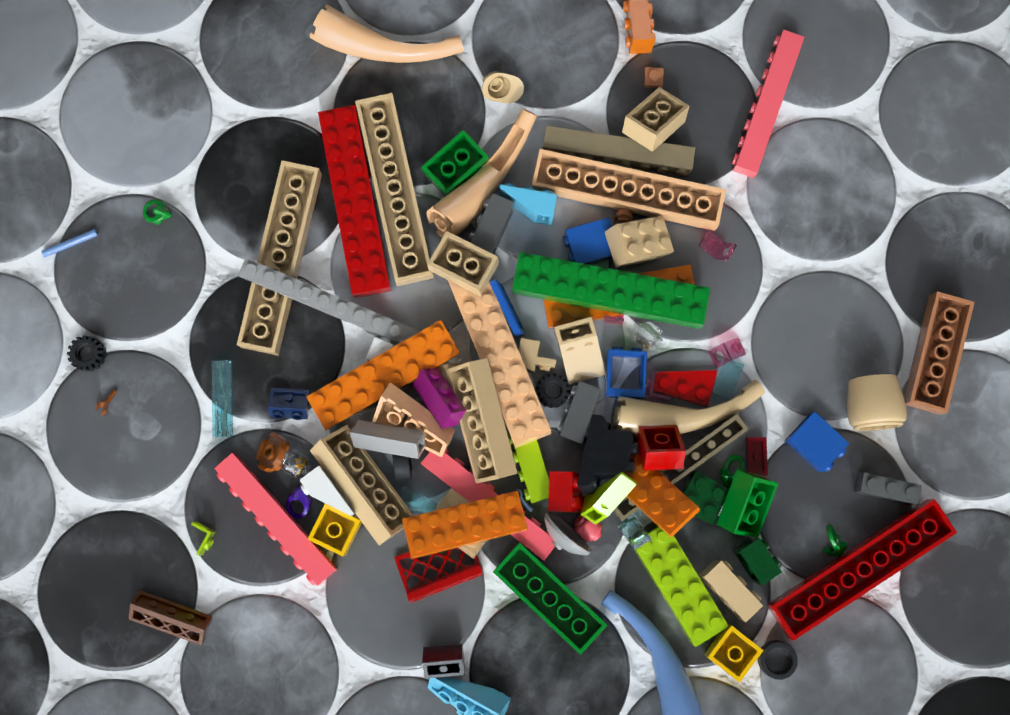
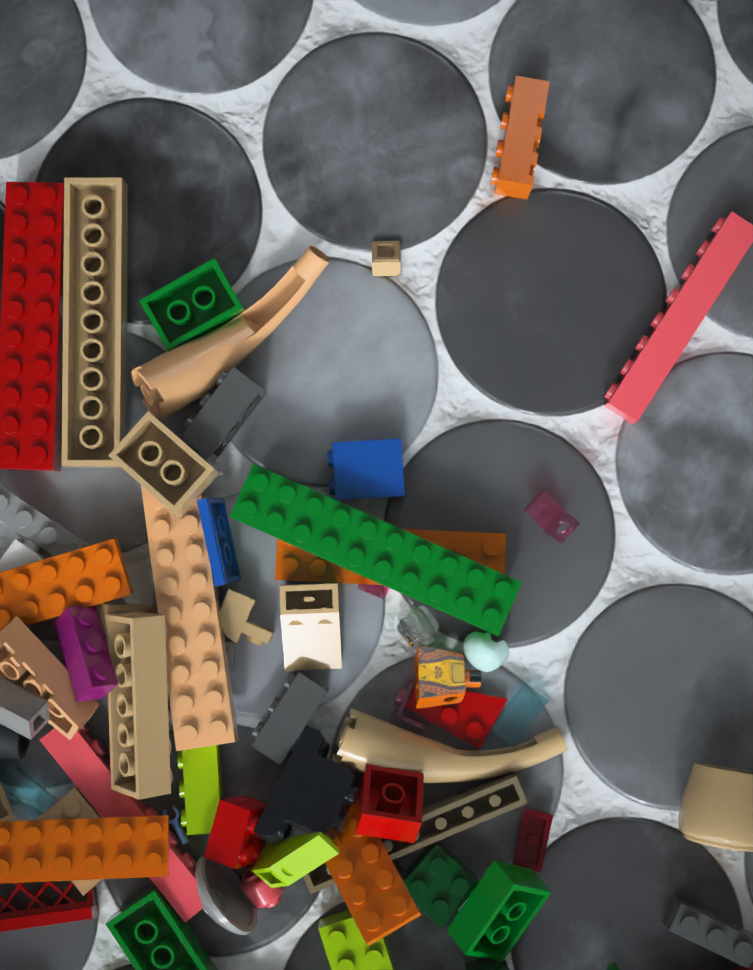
camera: 15 degrees right, 5 degrees up
(353, 38) = (84, 78): light nougat brick -> none
(502, 87) = (290, 204): tan piece -> none
(533, 204) = (298, 397): medium azure slope -> none
(564, 390) = (241, 678): black tyre -> none
(570, 109) = (385, 258): none -> tan slope
(619, 150) = (440, 338): dark tan brick -> none
(623, 216) = (425, 440): nougat plate -> none
(629, 189) = (439, 402): light nougat brick -> none
(630, 393) = (363, 703): blue window -> none
(634, 533) = (325, 913): clear light blue tile -> none
(639, 241) = (435, 485): tan brick -> none
(653, 77) = (520, 239): nougat plate -> none
(655, 119) = (504, 306): tan brick -> none
(672, 363) = (441, 677): none -> torso
(696, 341) = (484, 652): none -> light aqua hair
(726, 476) = (481, 858): green piece -> none
(731, 350) = (532, 676): clear pink bracket -> none
(817, 442) = (626, 840): blue brick -> none

